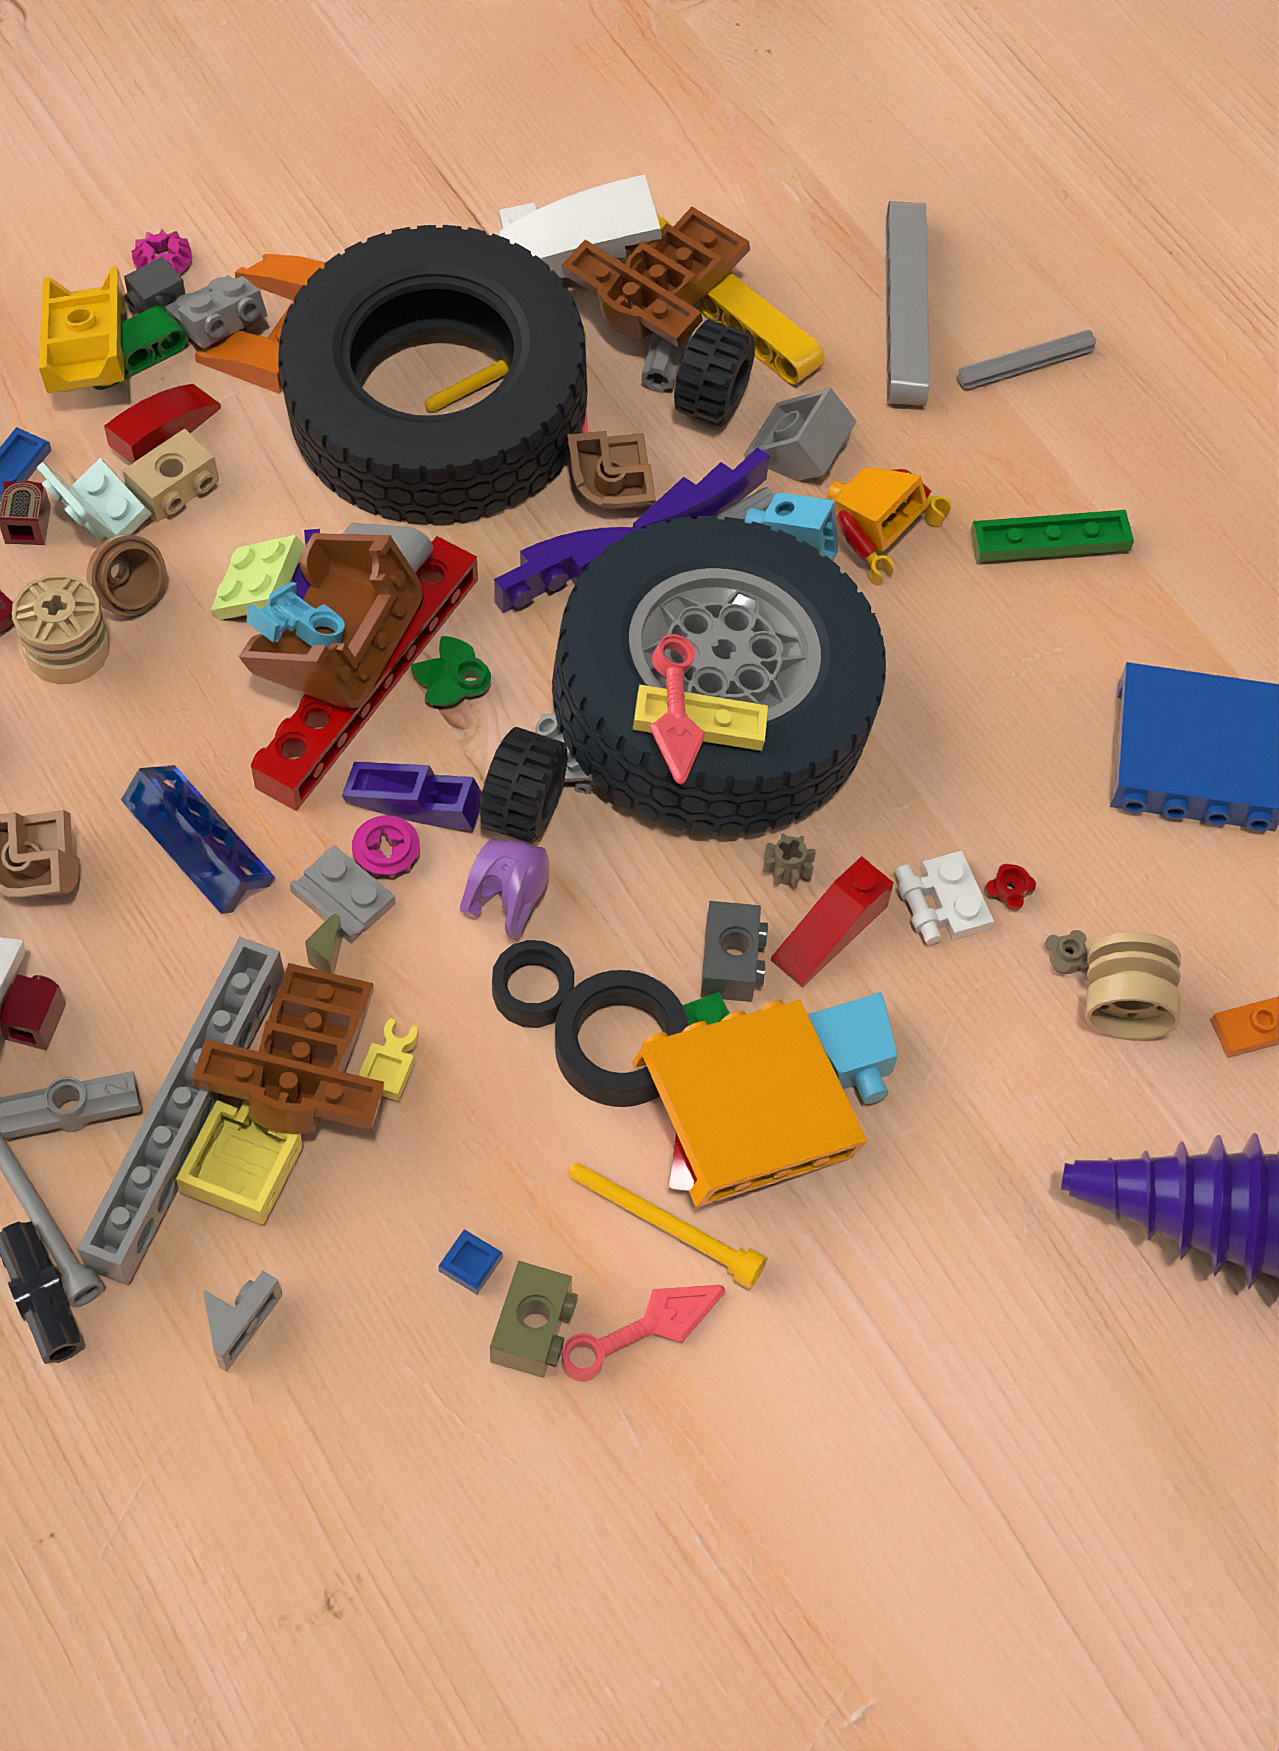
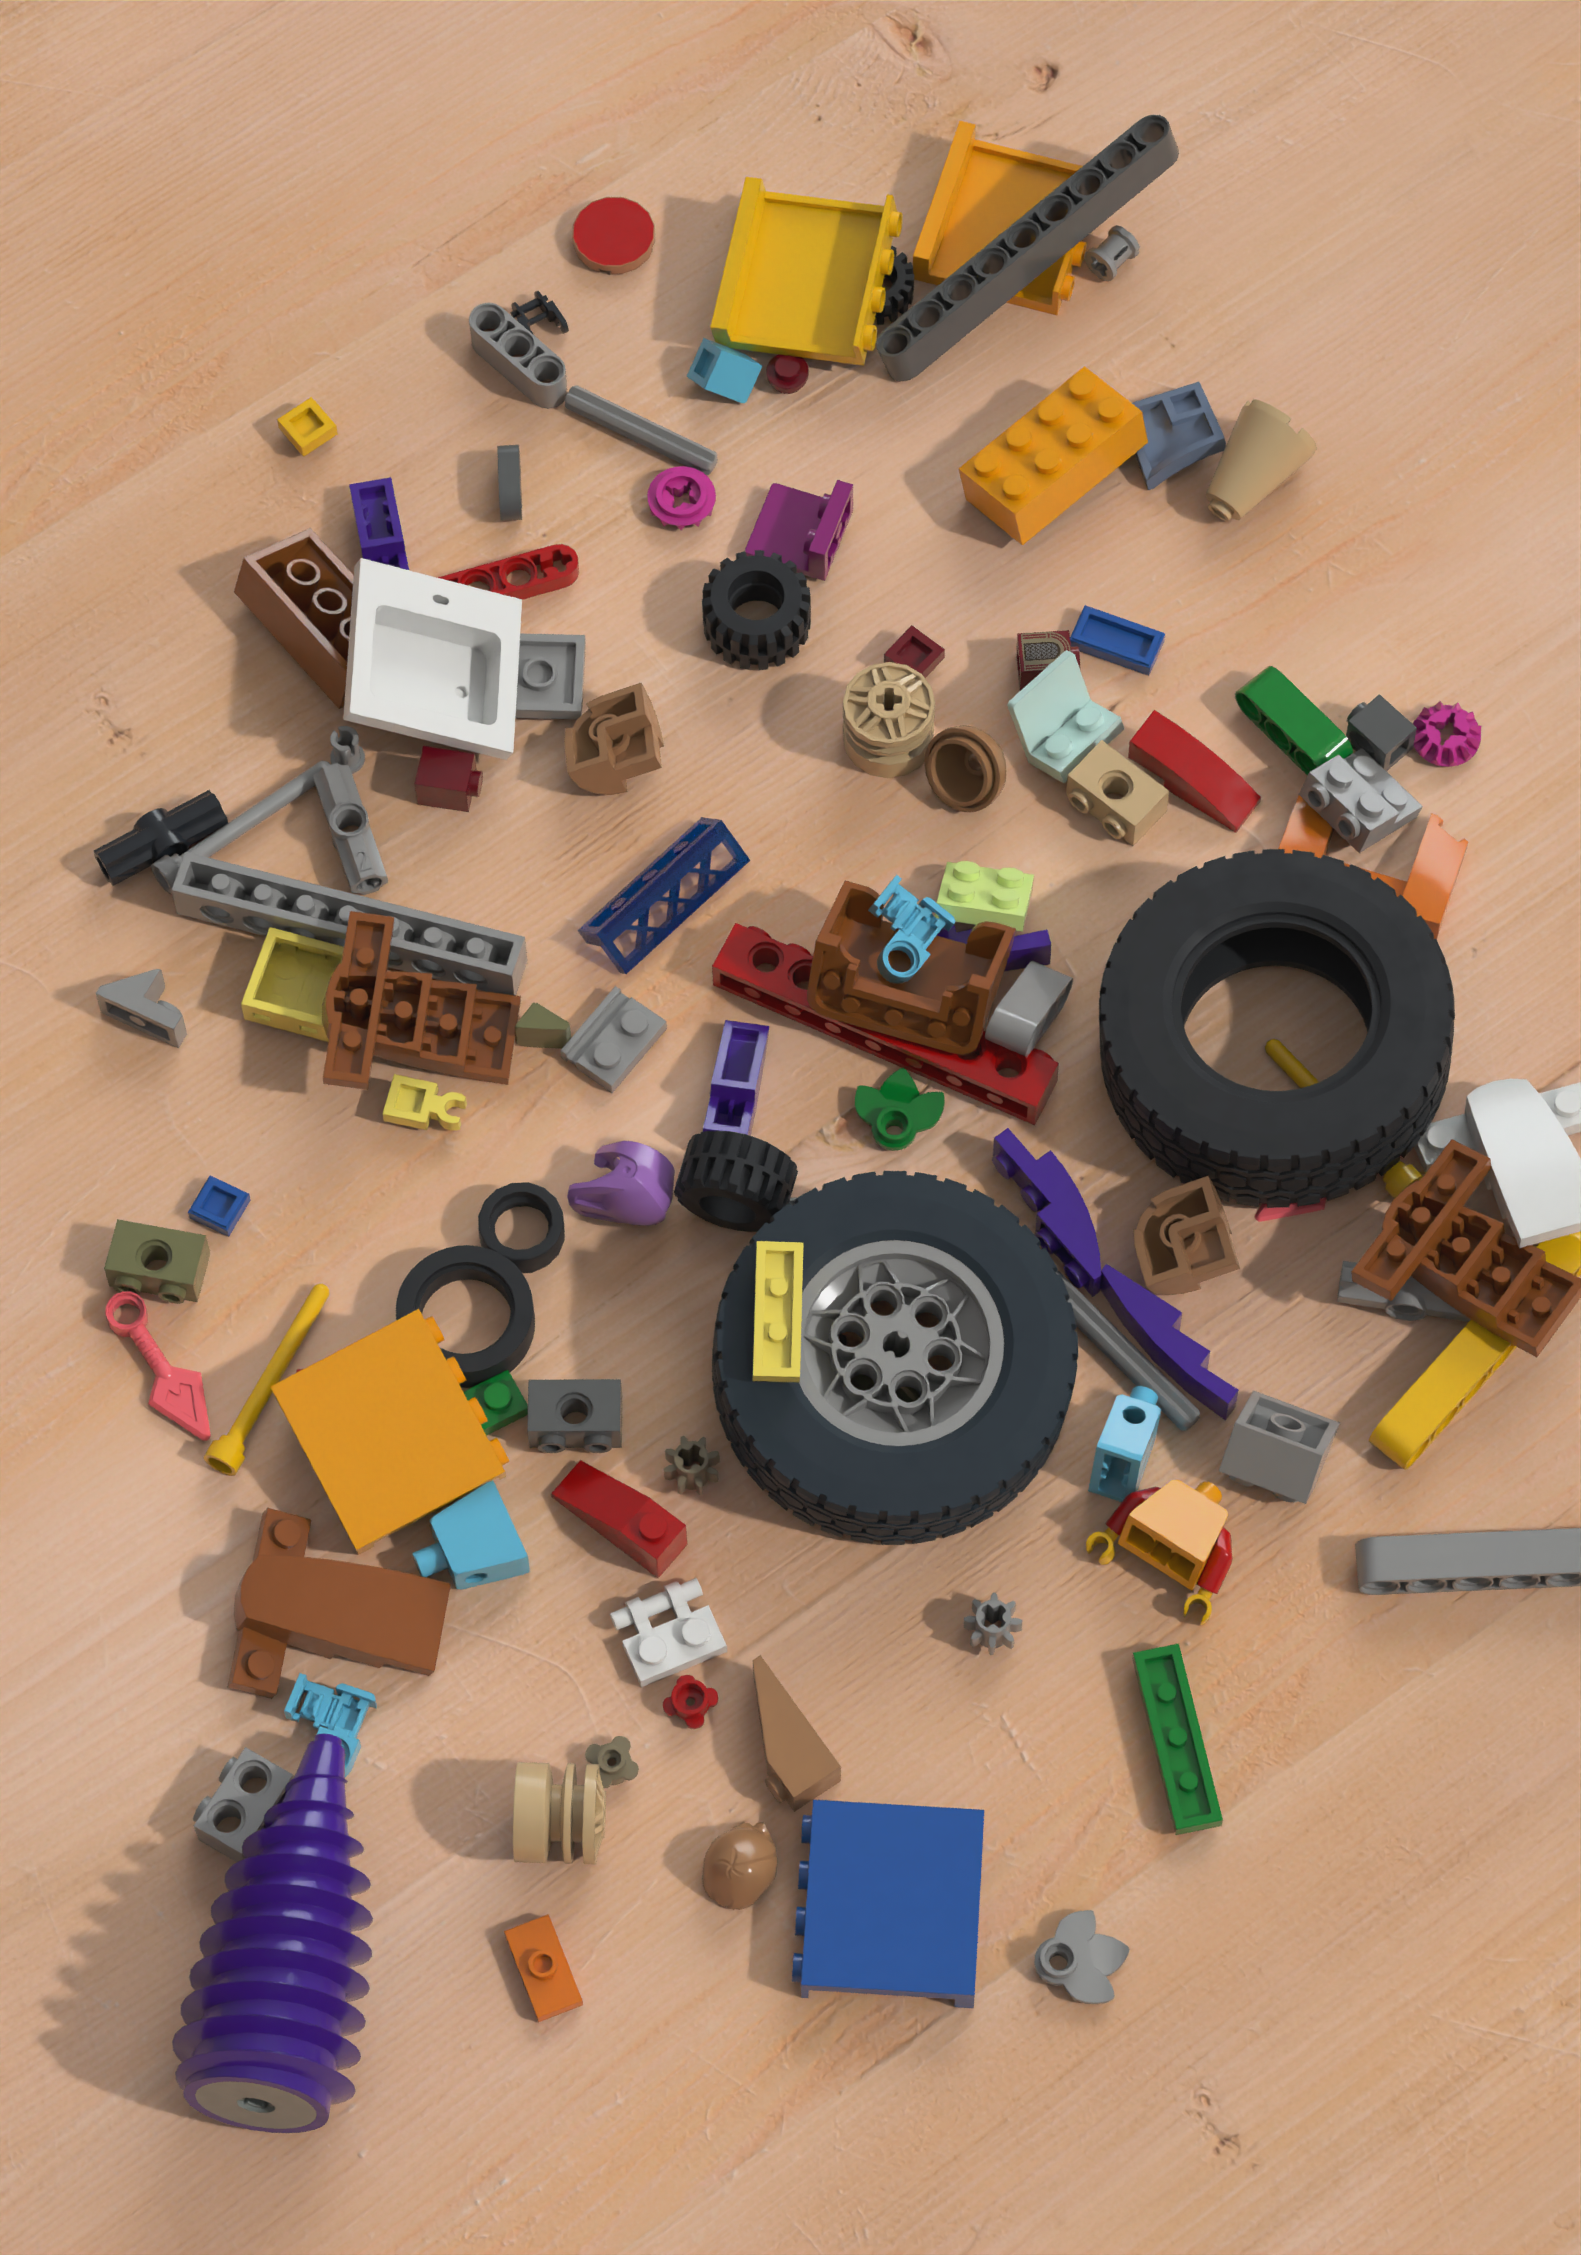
camera: 90 degrees right, 5 degrees up
(81, 335) = (1250, 668): yellow piece -> none
(400, 836) = (683, 1056): dark pink gear -> none
(675, 732) = (742, 1282): coral piece -> none
(714, 372) = (1334, 1330): black tyre -> none
(915, 1185) = (328, 1610): none -> dark orange slope
(949, 648) = (992, 1636): none -> light grey gear
(1017, 1184) = (336, 1712): none -> medium azure piece
(1026, 359) = (1454, 1710): light grey axle -> none
(1053, 810) = (795, 1755): none -> medium nougat slope
(1123, 1257) = (233, 1801): none -> light grey brick
(1164, 859) = (740, 1866): none -> medium nougat hair
(1236, 621) = (1088, 1959): none -> light grey plate

